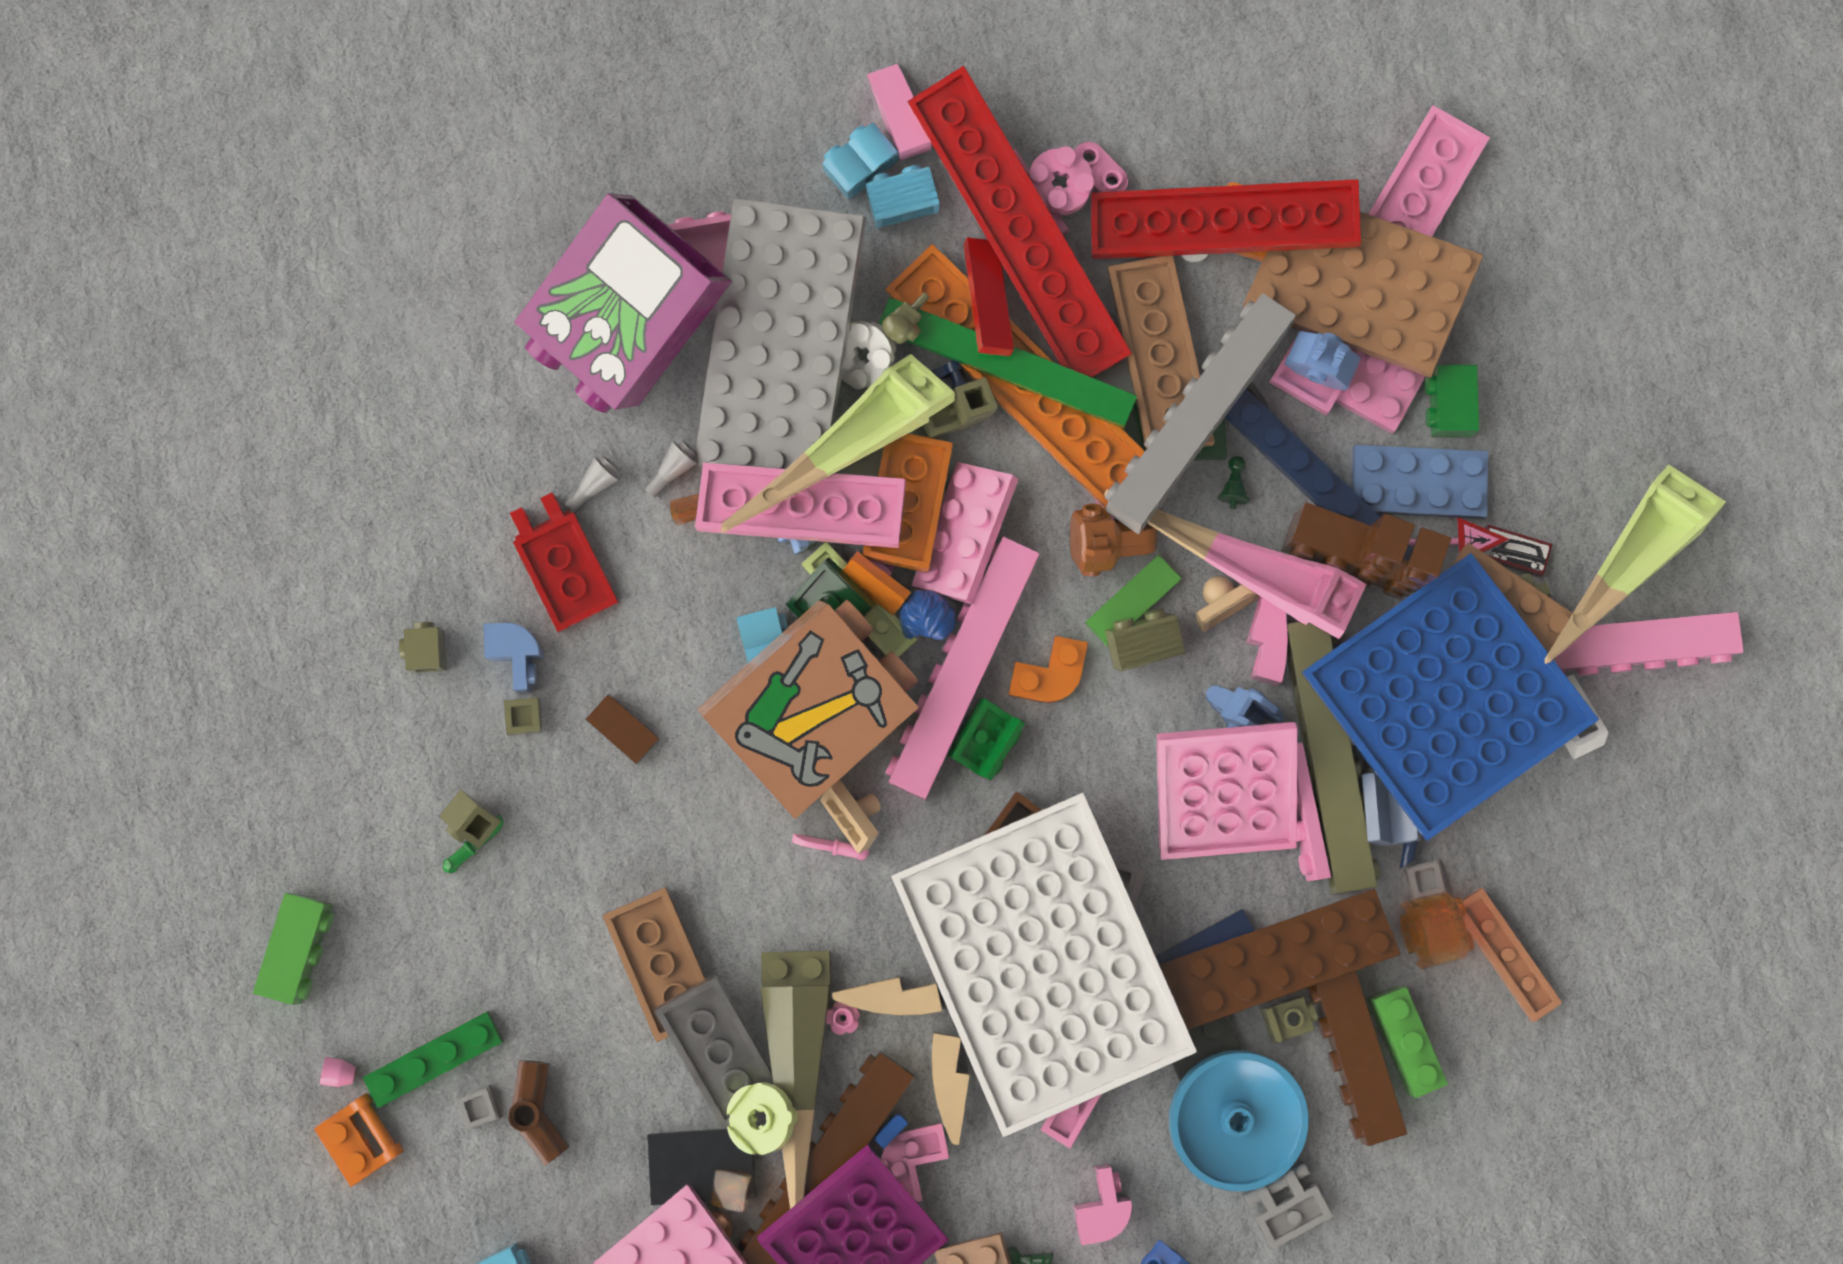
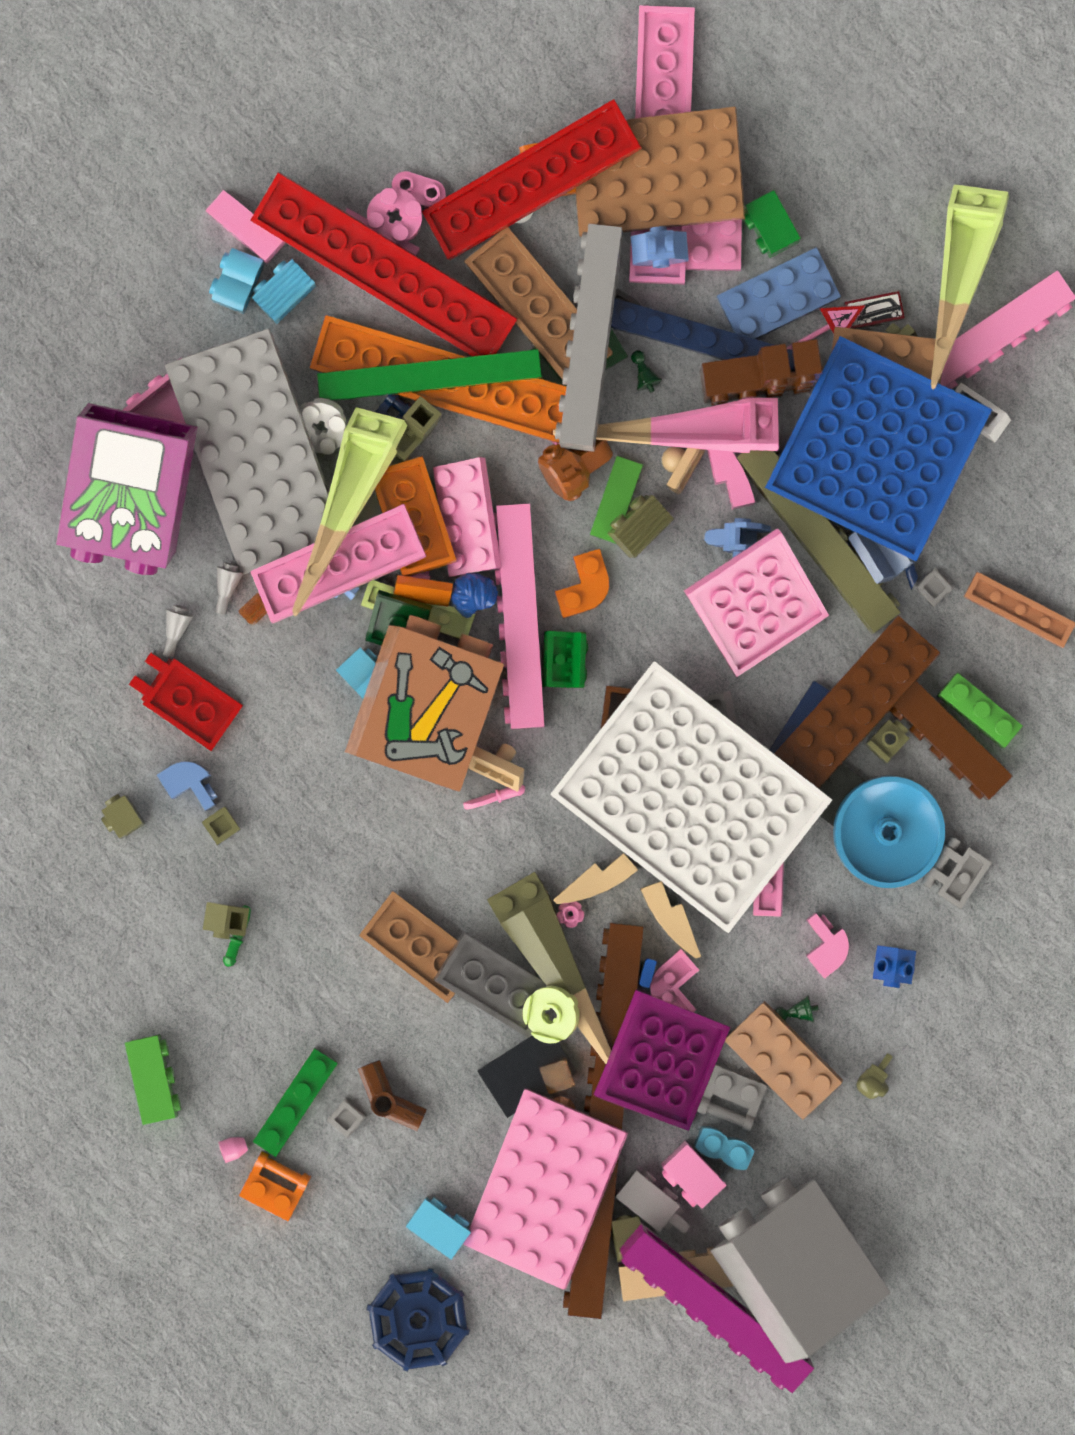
camera: 20 degrees left, 5 degrees up
(622, 729) = (297, 795): reddish brown tile -> none
(903, 321) = (338, 387): olive piece -> none
(988, 298) = (389, 335): red tile -> none
(1313, 856) = (845, 617): bright pink plate -> none
(1435, 929) = (958, 620): clear orange brick -> none

